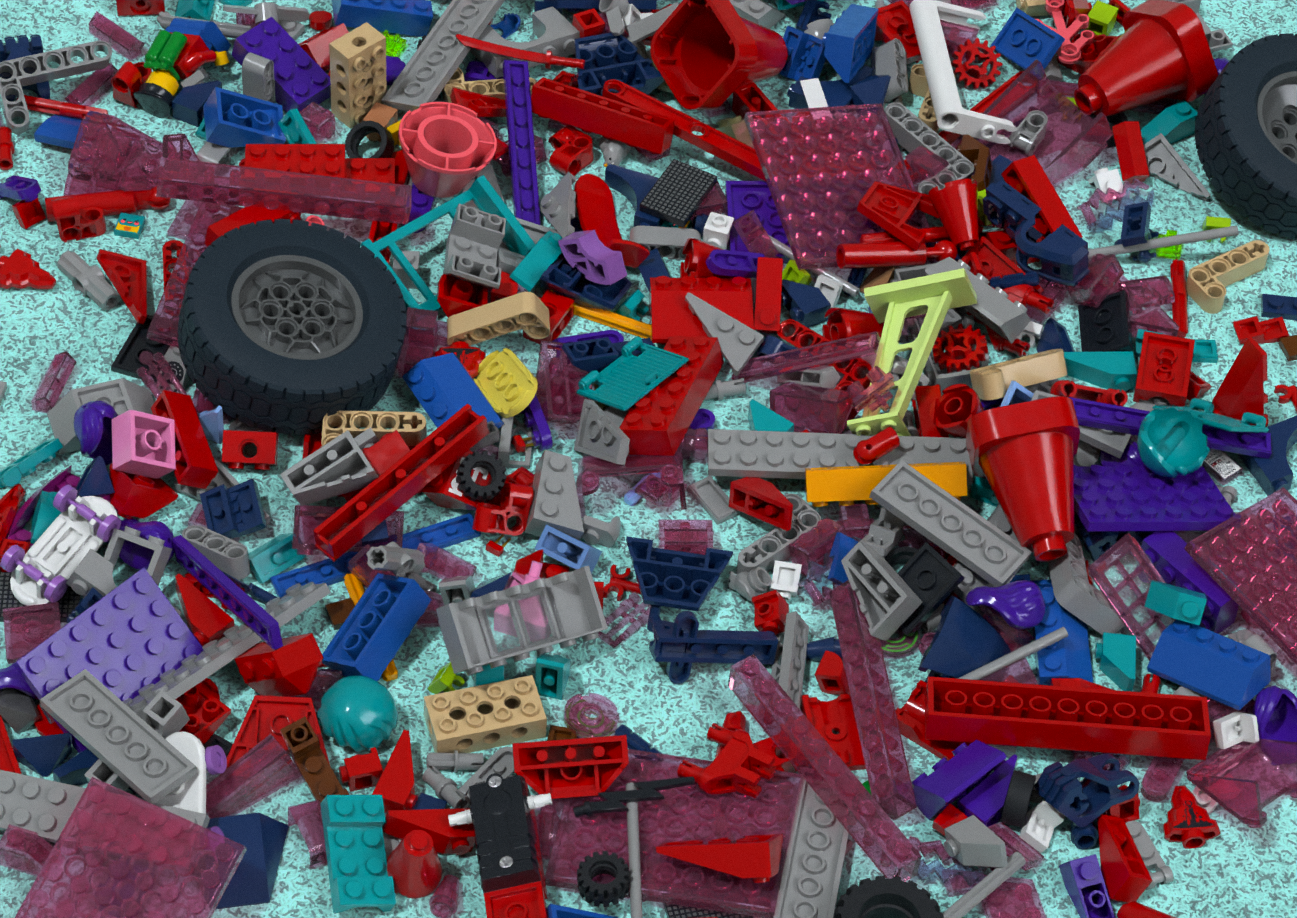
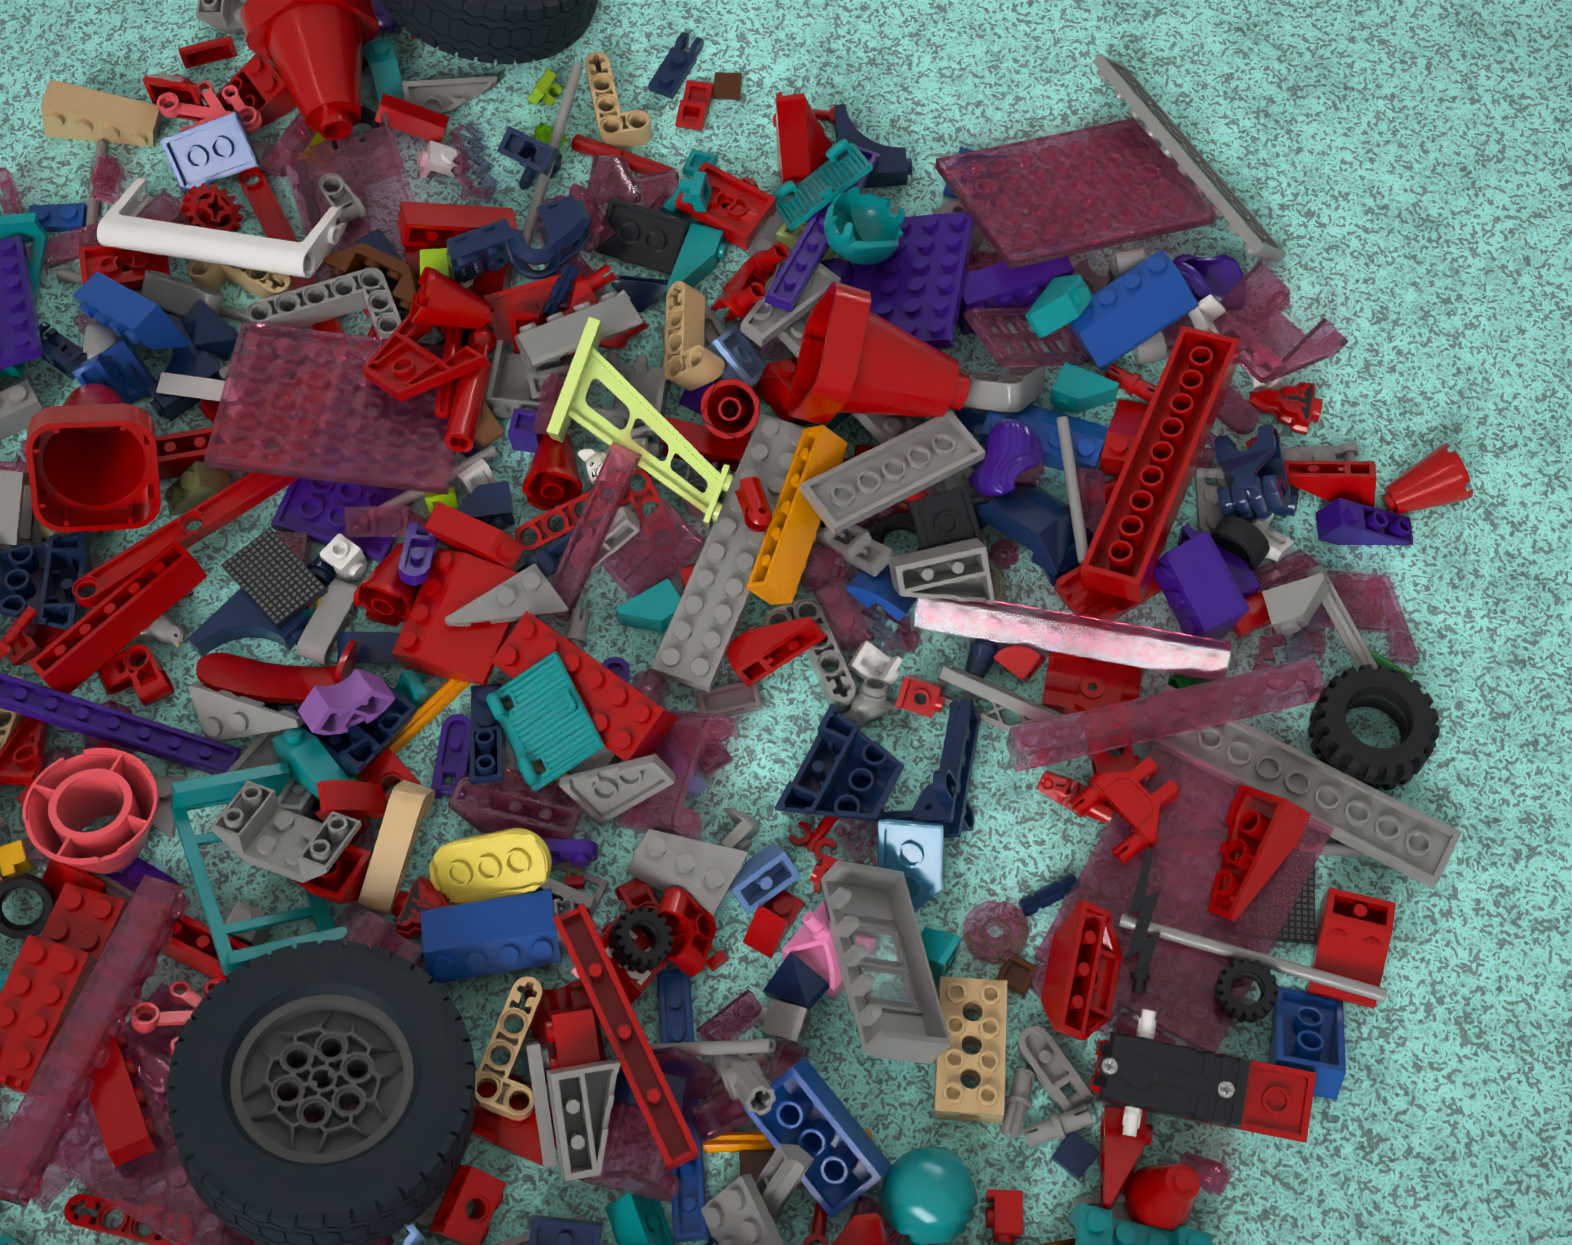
camera: 65 degrees left, 15 degrees up
(330, 616) = (782, 1176): none -> light grey piece
(397, 779) = (1041, 1179): red slope -> none
(415, 541) = (722, 1047): none -> light grey piece
(444, 679) = (897, 1078): lime tile -> none
(517, 275) = (351, 798): none -> red slope
(624, 634) = (916, 851): none -> dark azure tile
(685, 535) = (782, 747): clear pink brick -> none
(862, 397) = (685, 477): clear pink hips -> none
(924, 164) = (356, 312): clear pink slope -> none
(960, 349) = (637, 374): red gear -> none
(1102, 18) = (199, 69): lime brick -> none
(1156, 337) = (696, 191): none -> teal tile

